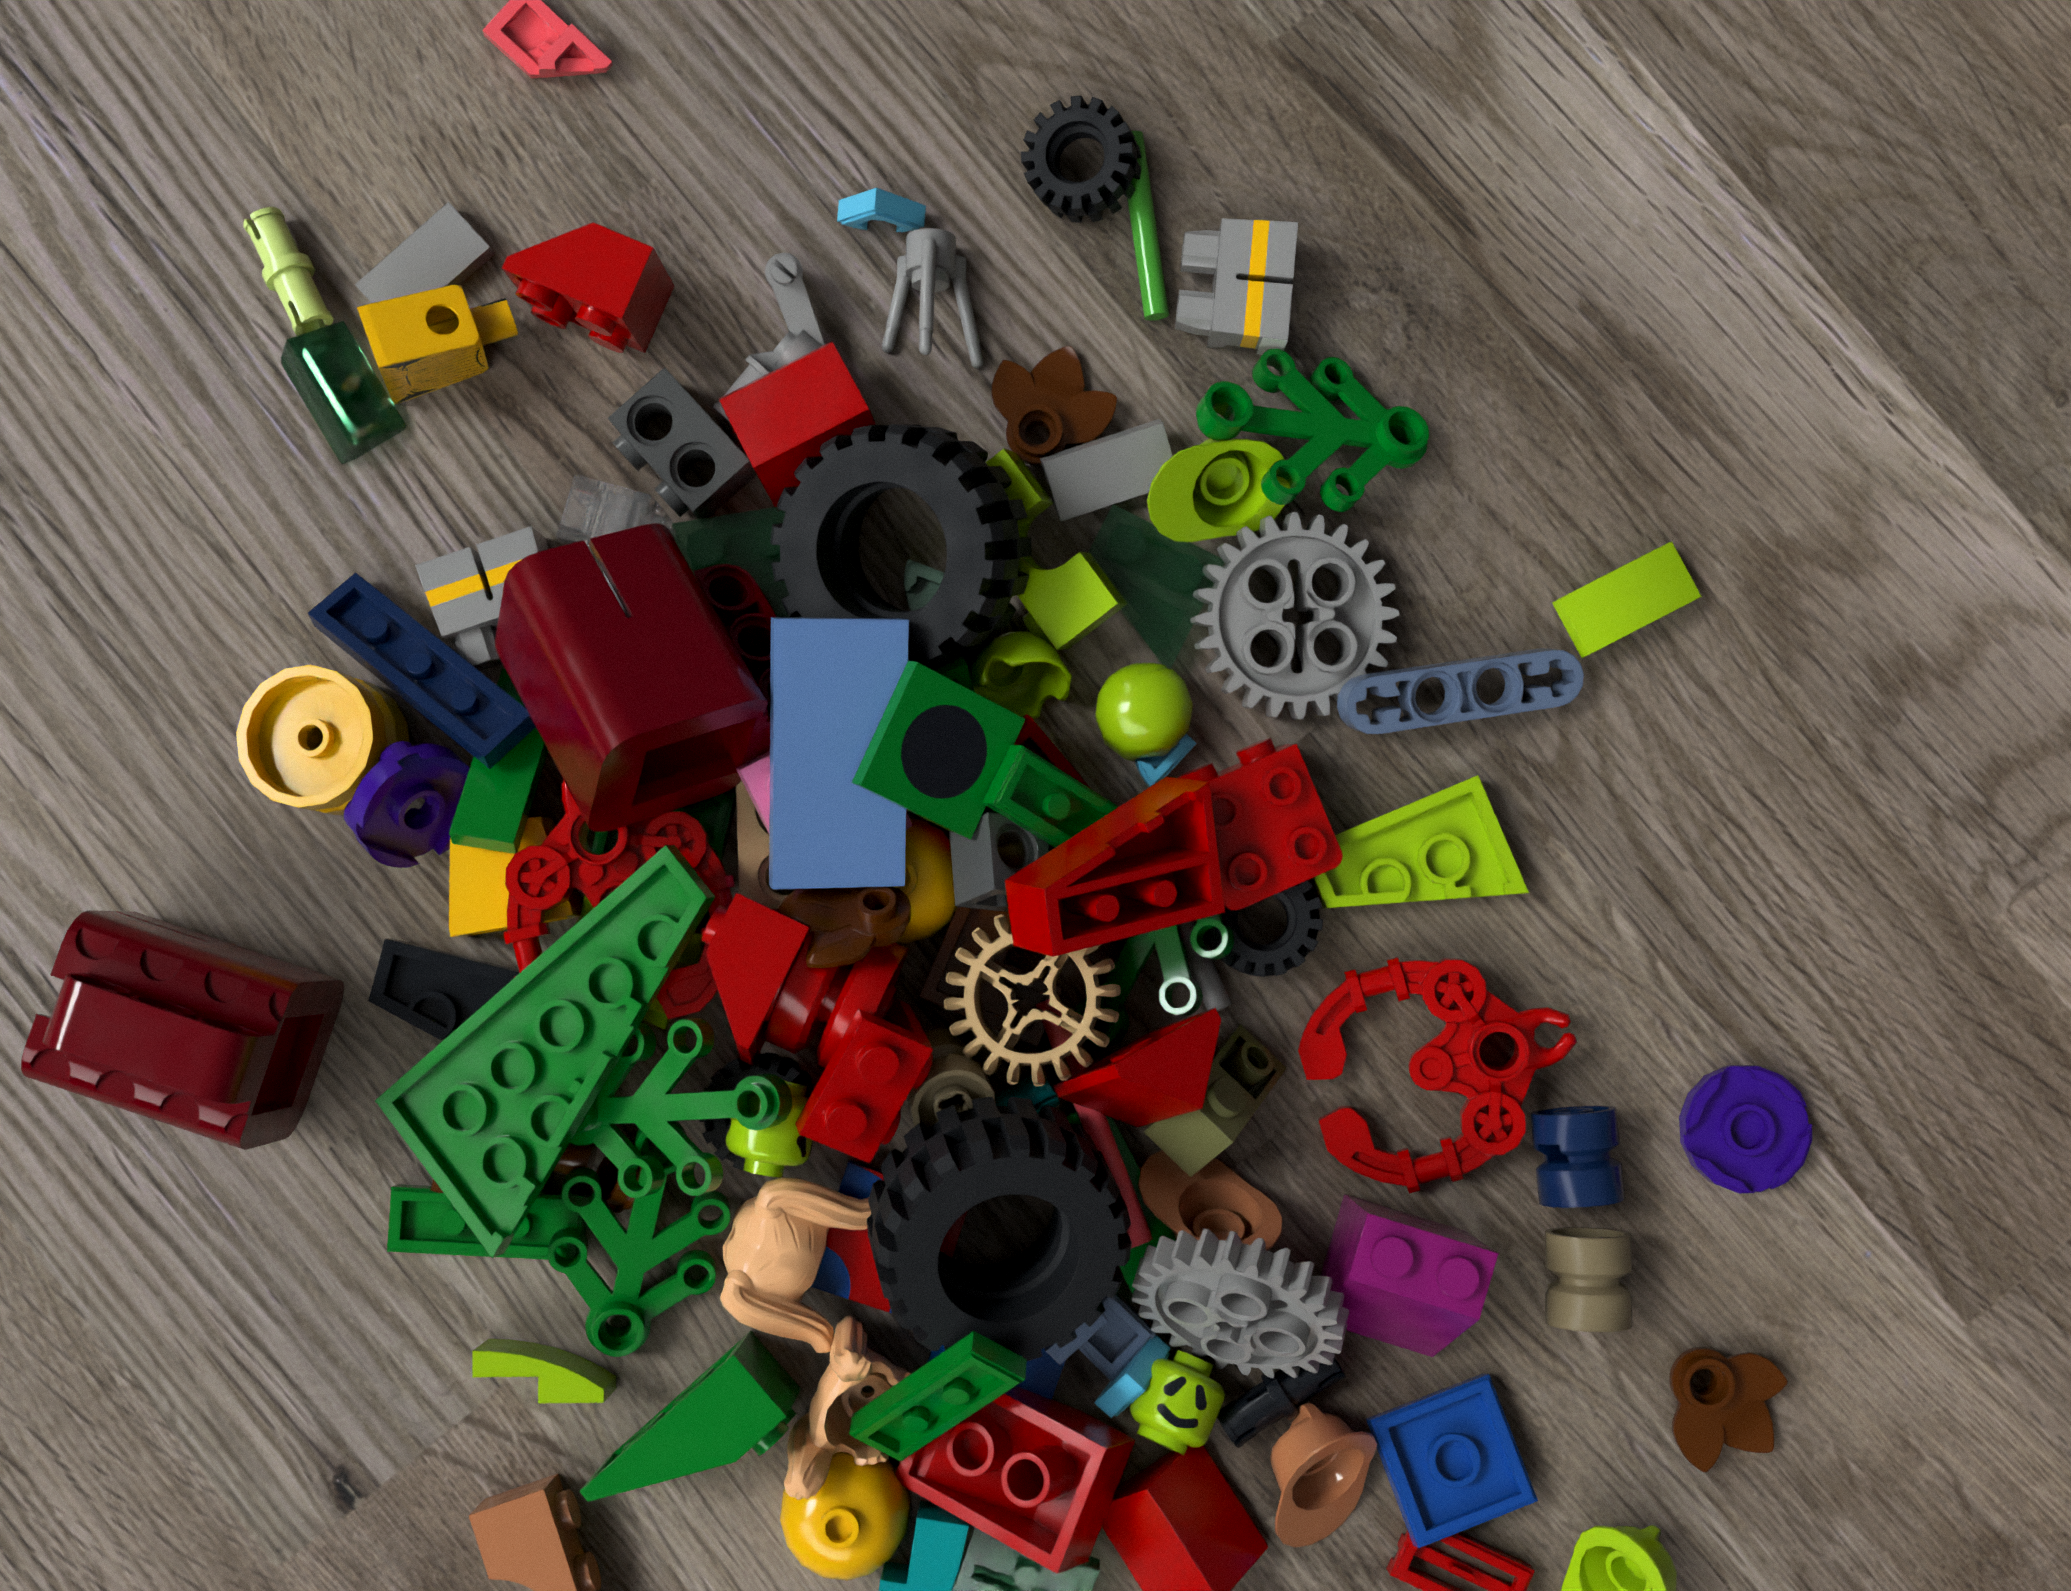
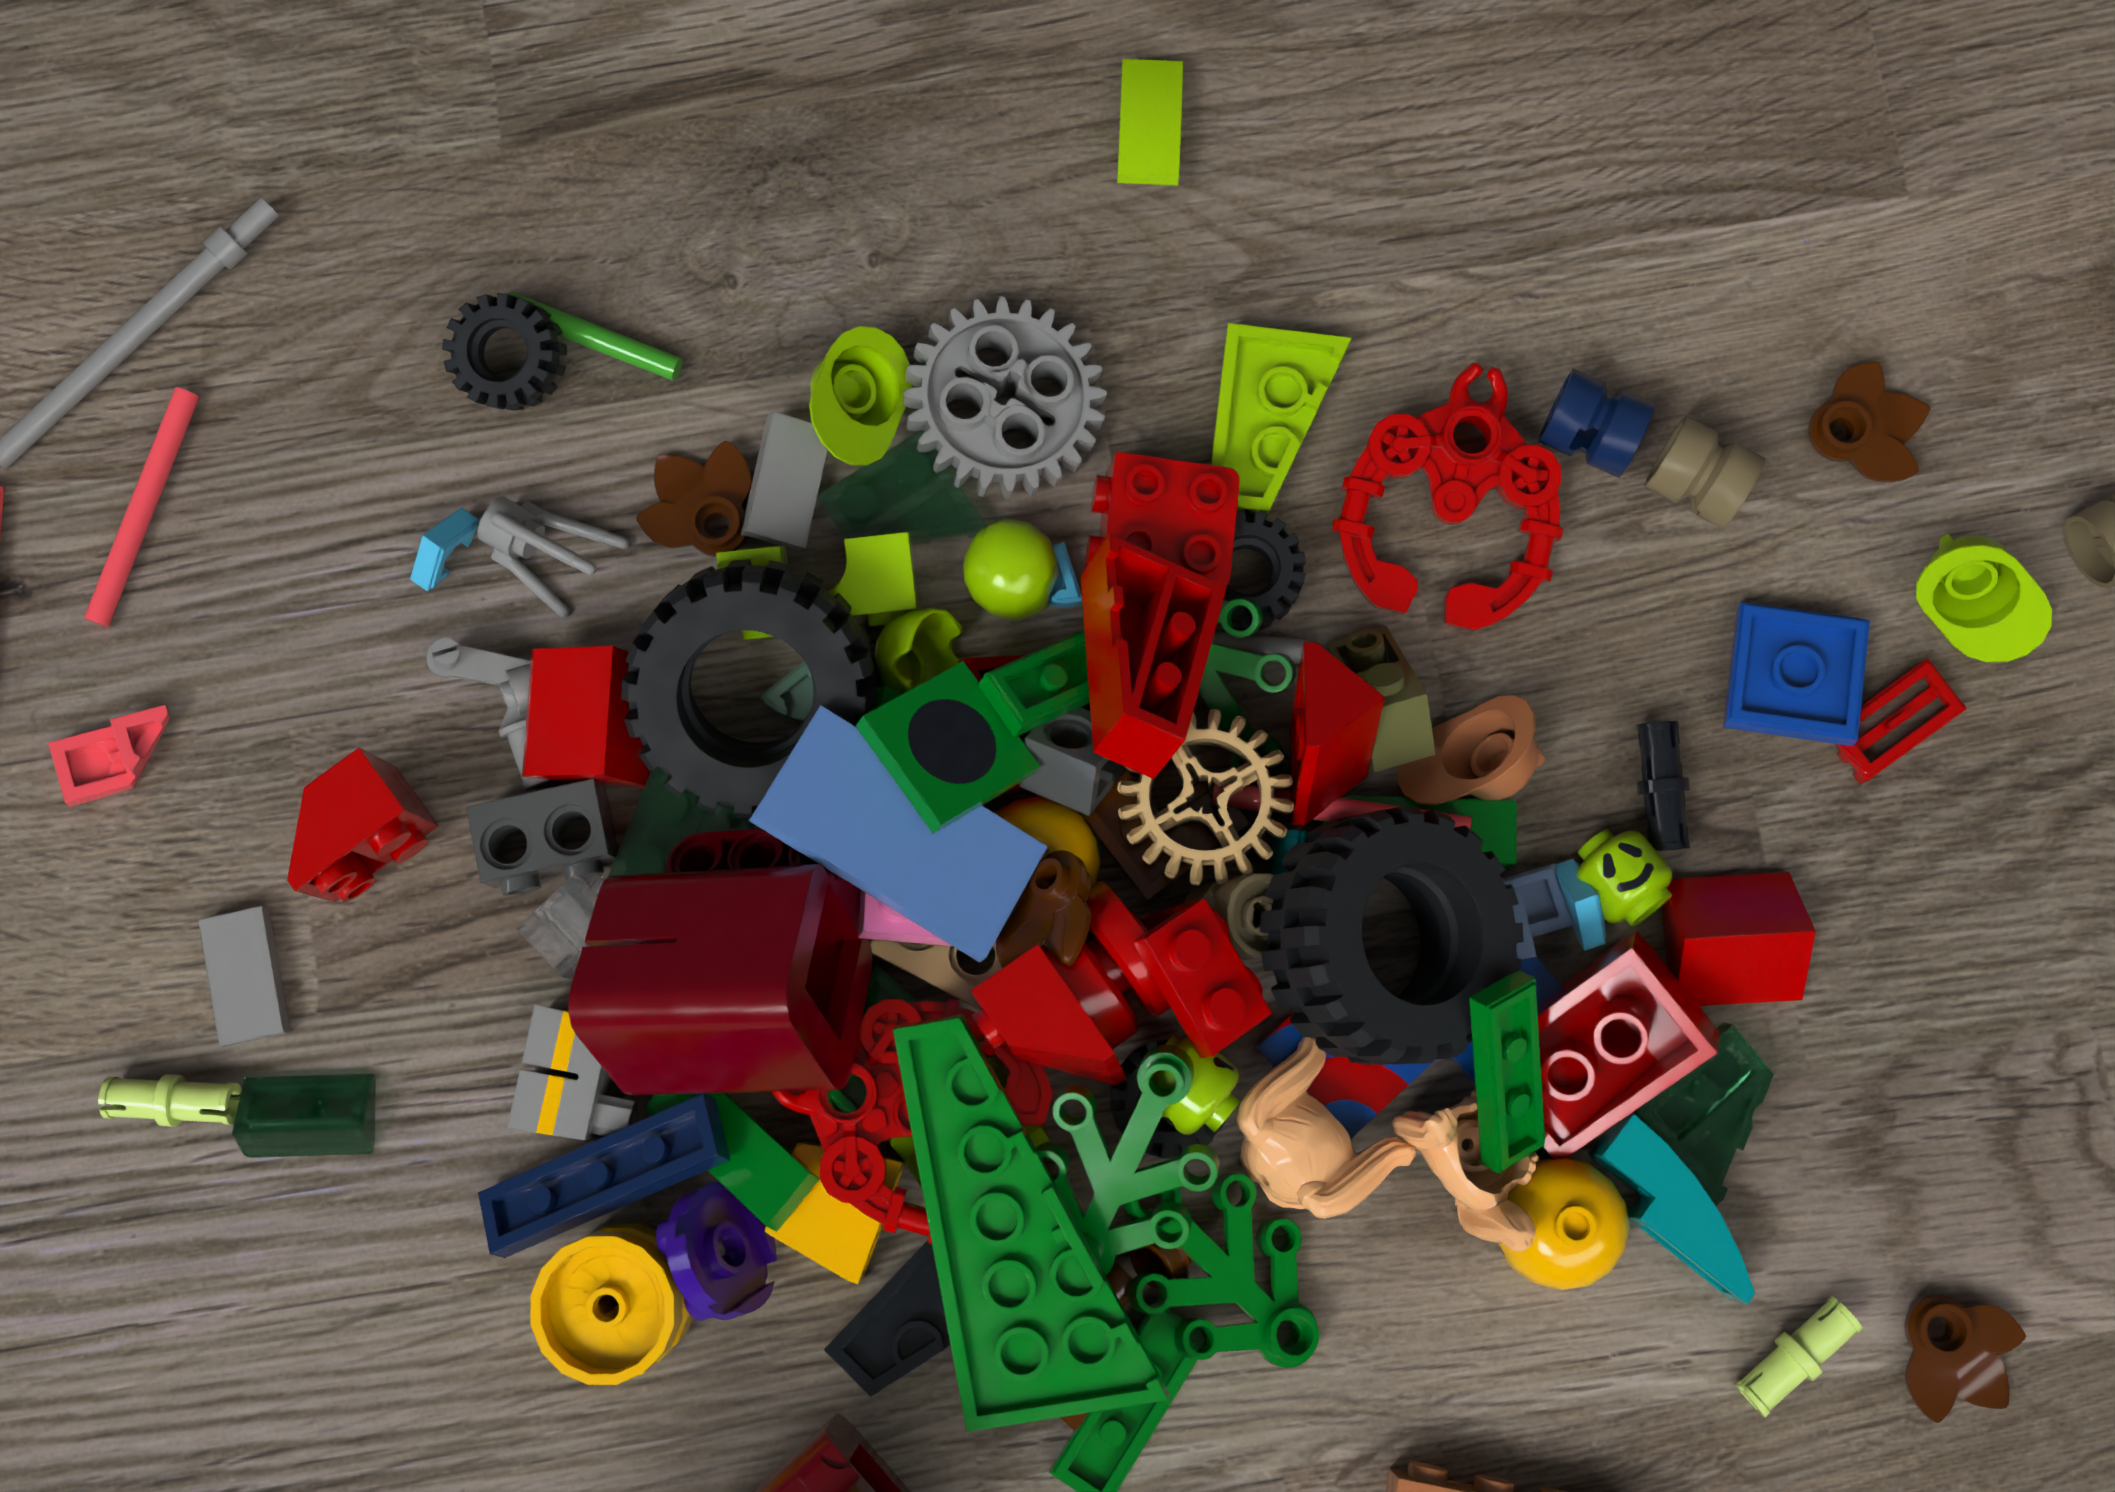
camera: 60 degrees left, 5 degrees down
(432, 339) = (313, 1000): yellow torso -> none
(560, 1374) = (1305, 1408): lime slope -> none
(712, 1423) = (1419, 1295): green slope -> none
(1240, 1303) = (1568, 766): light grey gear -> none
(1250, 286) = (697, 274): light grey hips -> none
(1319, 1475) = (1749, 789): nougat piece -> none
(1392, 435) = (898, 231): green plant -> none
(1406, 1276) = (1621, 624): magenta slope -> none
(1461, 697) = (1146, 296): sand blue beam -> none
(1745, 1128) = (1647, 278): dark purple tile -> none

